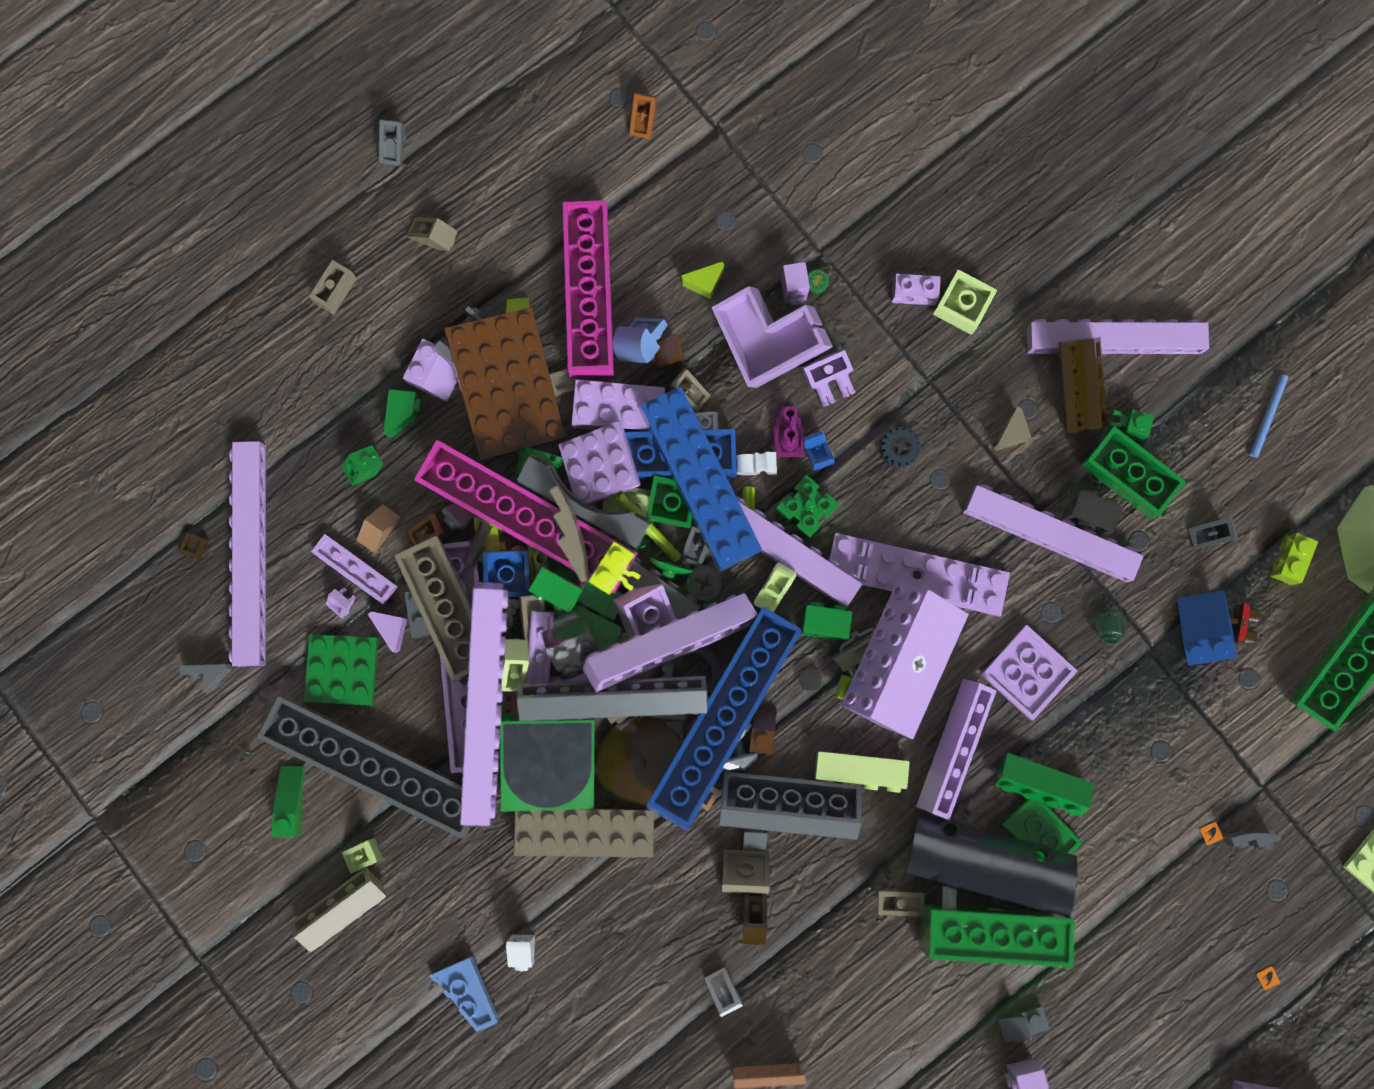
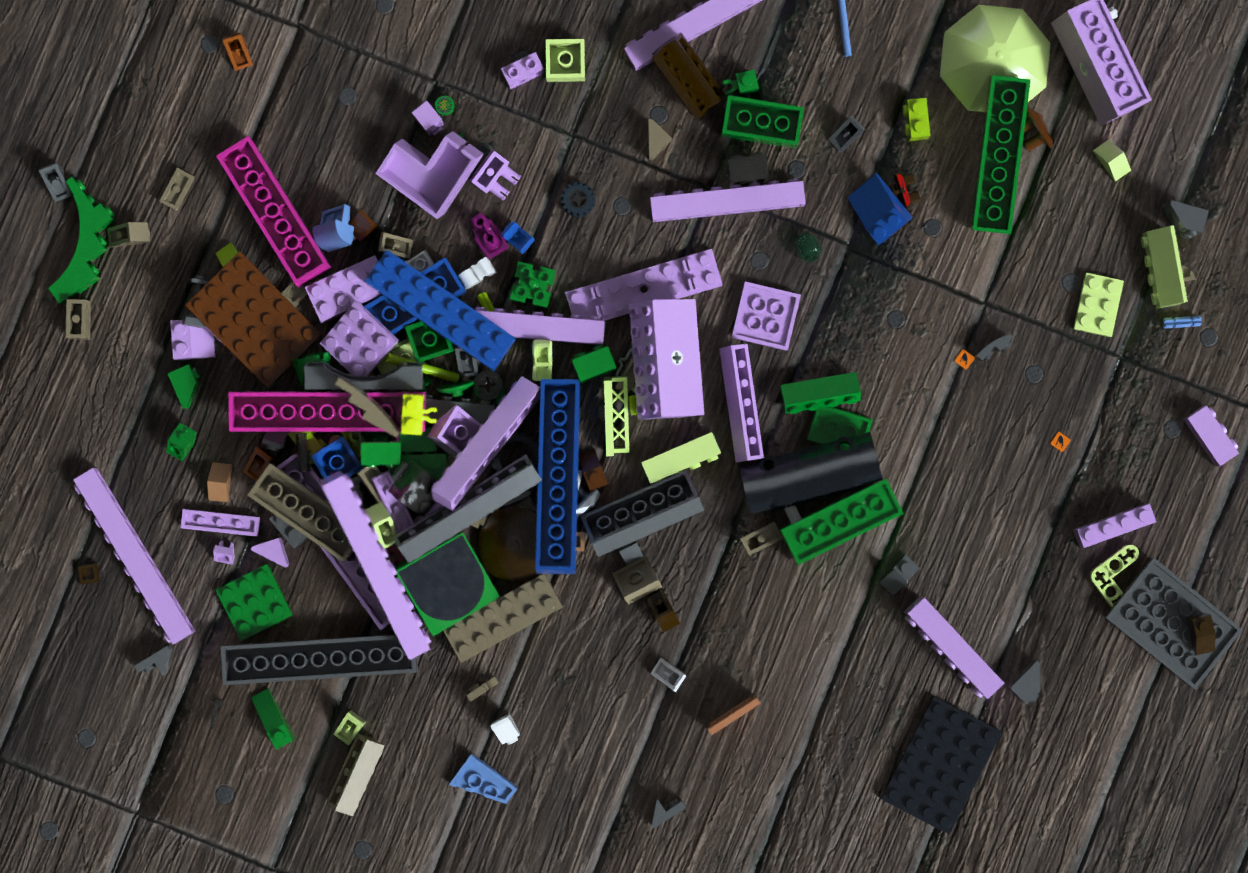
camera: 25 degrees left, 5 degrees up
(389, 223) = (90, 246): none -> green arch
(505, 216) = (177, 189): none -> dark tan plate
(514, 893) = (476, 690): none -> dark tan plate
(704, 280) = (358, 153): lime slope -> none
(810, 687) = (610, 450): none -> yellowish green fence

